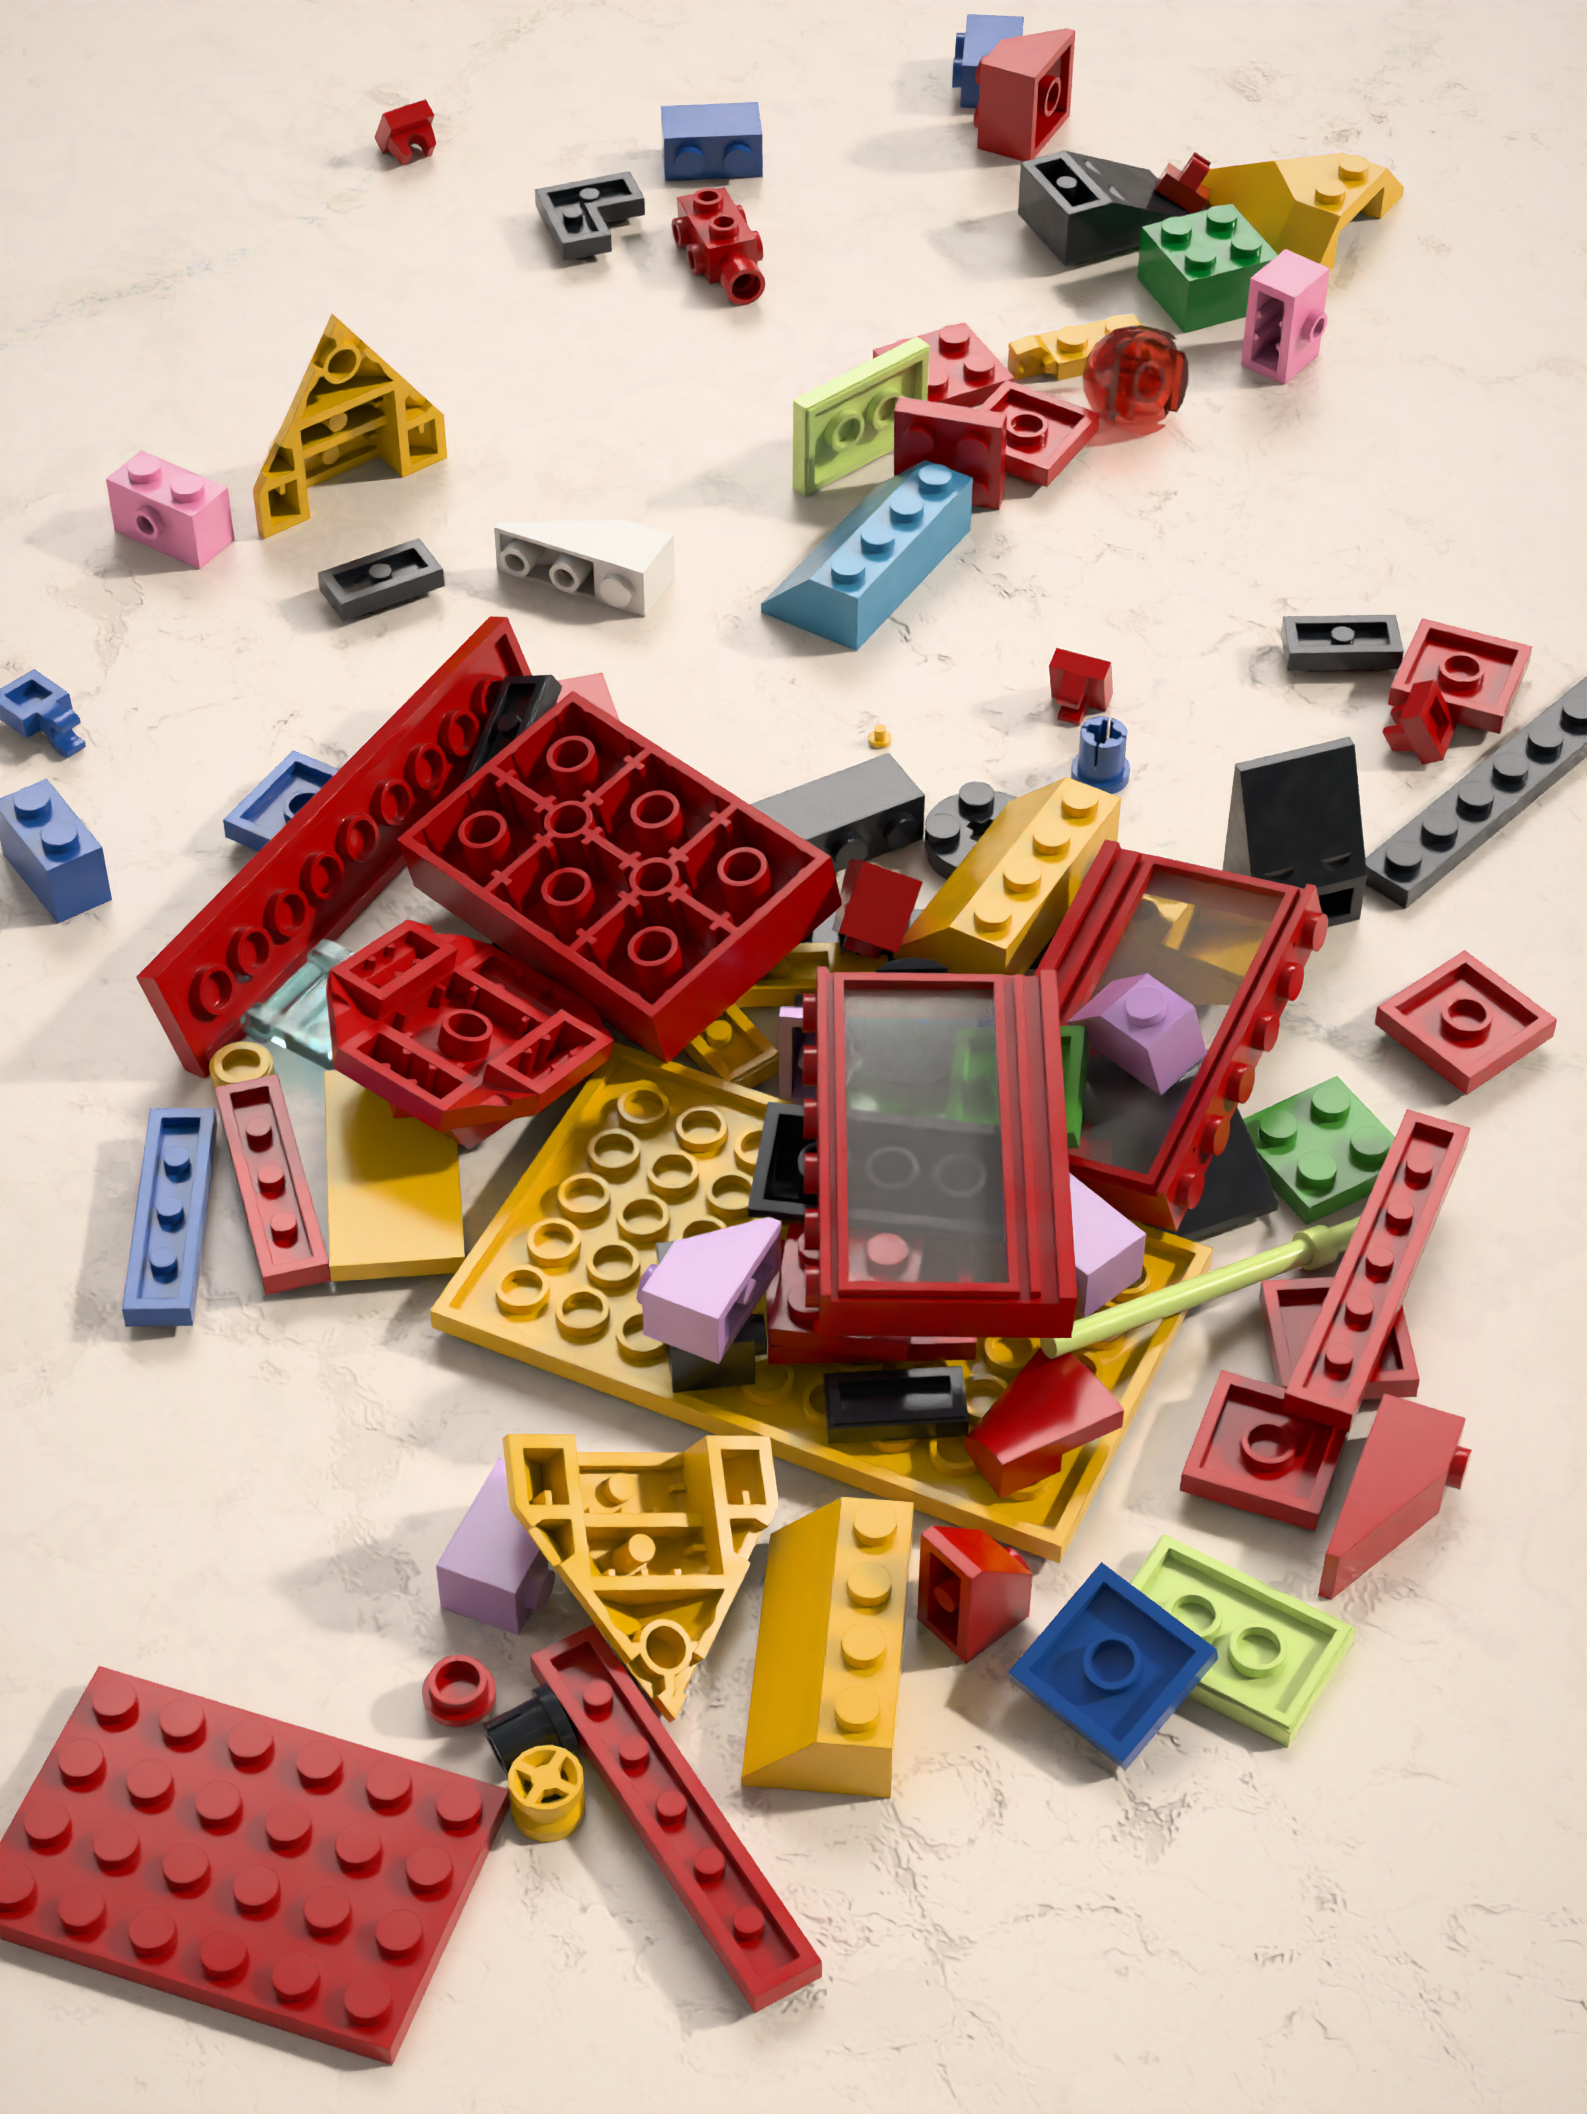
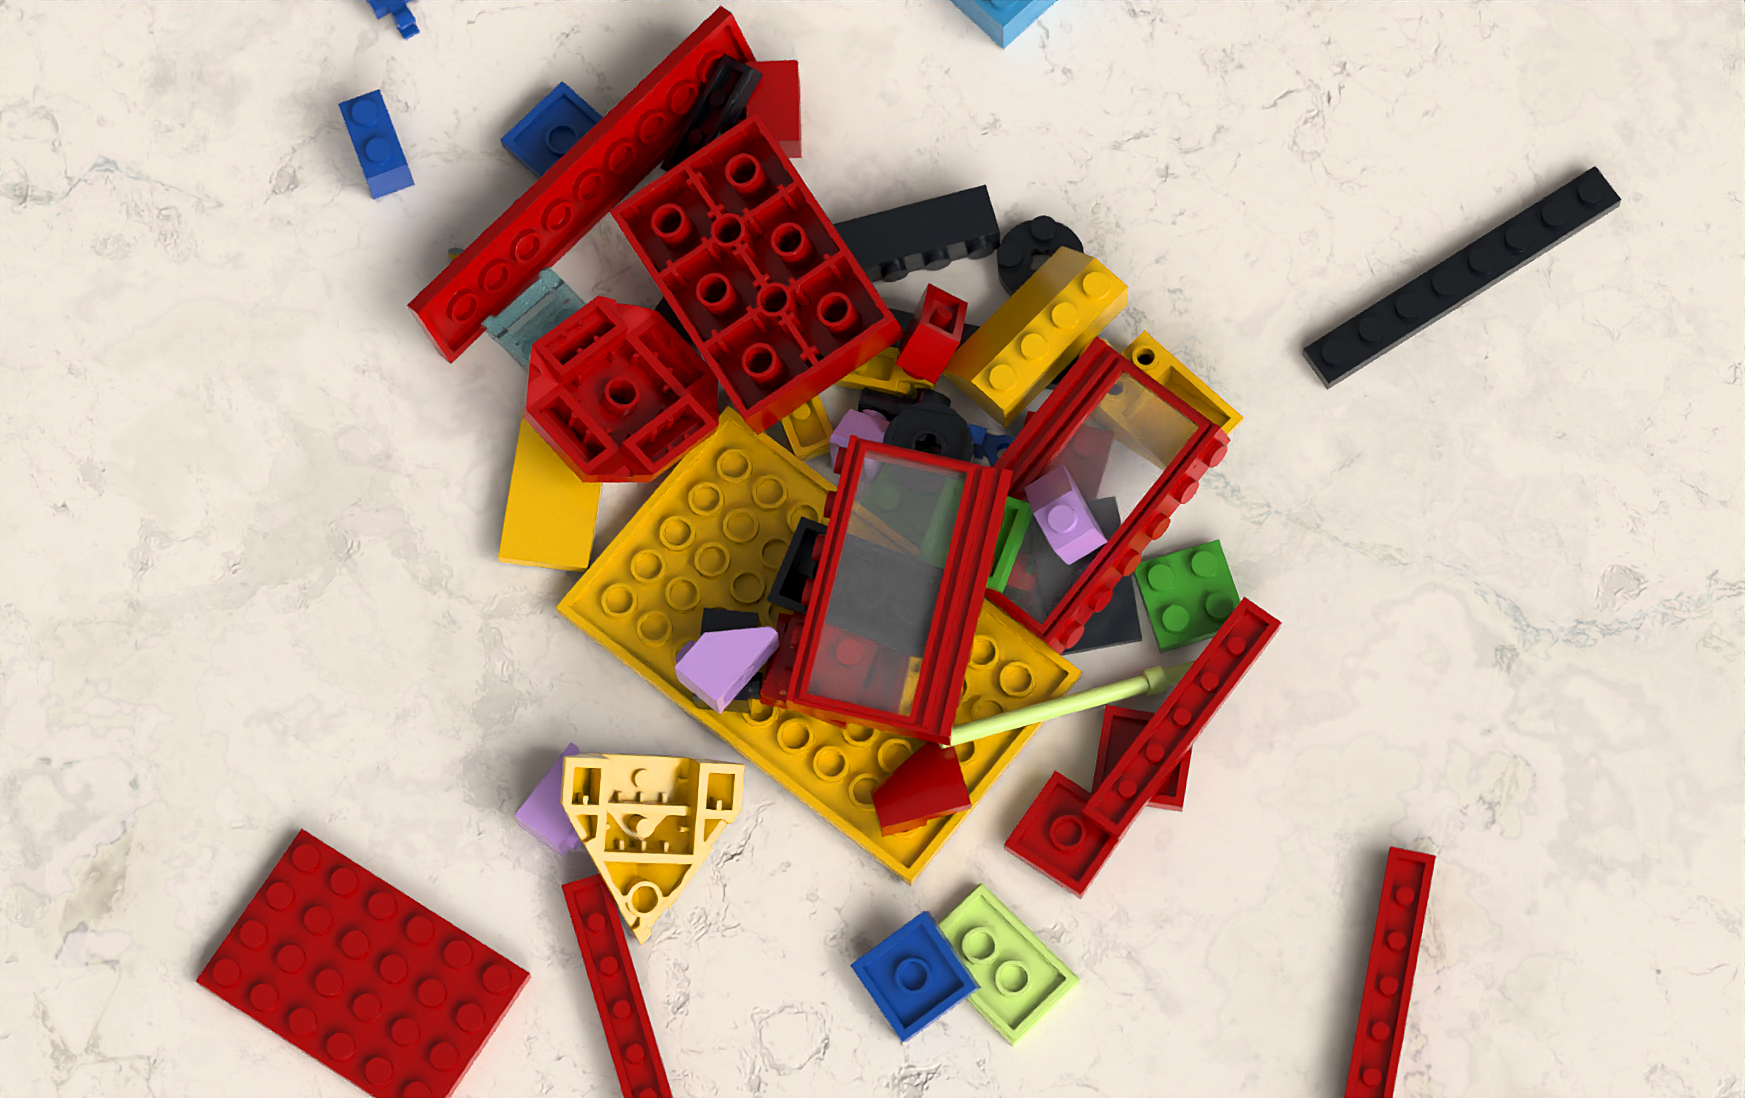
camera: 20 degrees right, 25 degrees up
(170, 1217) = (404, 486): plate -> none
(240, 1063) = (475, 367): yellow tile -> none
(272, 1184) = (475, 473): plate -> none
(458, 1691) = (515, 895): red plate -> none
(529, 1725) = (550, 937): black bush -> none
(539, 1775) = (545, 973): yellow wheel -> none
(831, 1650) = (749, 920): yellow slope -> none
(879, 737) = (995, 144): yellow piece -> none
(895, 1404) = (833, 753): black tile -> none
(970, 1588) = (846, 900): red slope -> none
(1079, 683) = (1151, 134): red tile -> none
(1102, 760) = (1153, 217): blue bush -> none
(1105, 1249) = (993, 664): slope -> none
(1301, 824) = (1247, 344): black slope -> none
(1341, 642) = (1366, 127): black plate -> none
(1396, 1487) = (1140, 882): slope -> none
(1422, 723) = (1398, 224): red tile -> none
(1465, 1022) = (1326, 511): plate -> none
(1472, 670) = (1443, 179): plate -> none

